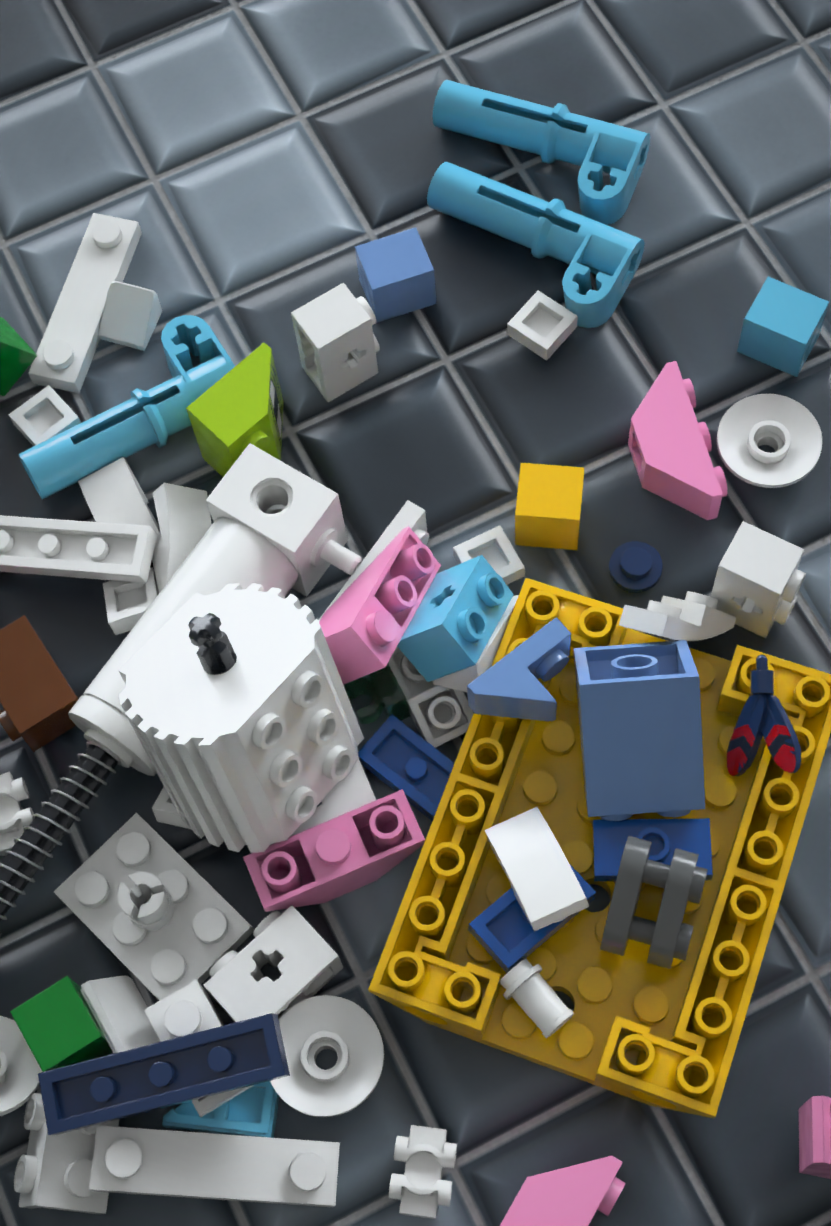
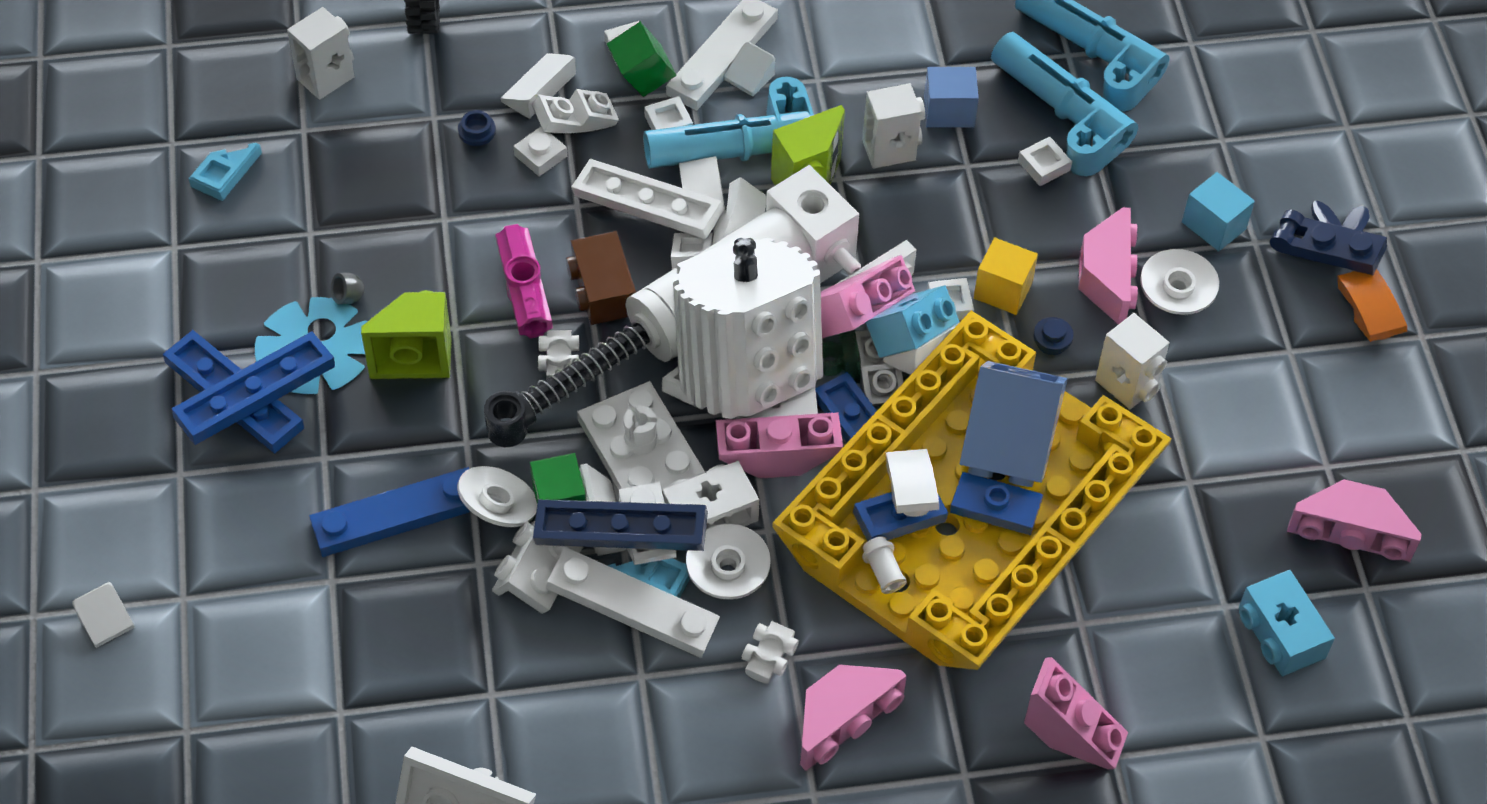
camera: 10 degrees right, 10 degrees down
(512, 683) = (938, 363): medium blue slope -> none
(679, 619) = (1081, 372): white slope -> none
(681, 883) = (1006, 519): dark grey brick -> none
(764, 718) = (1101, 441): dark blue piece -> none

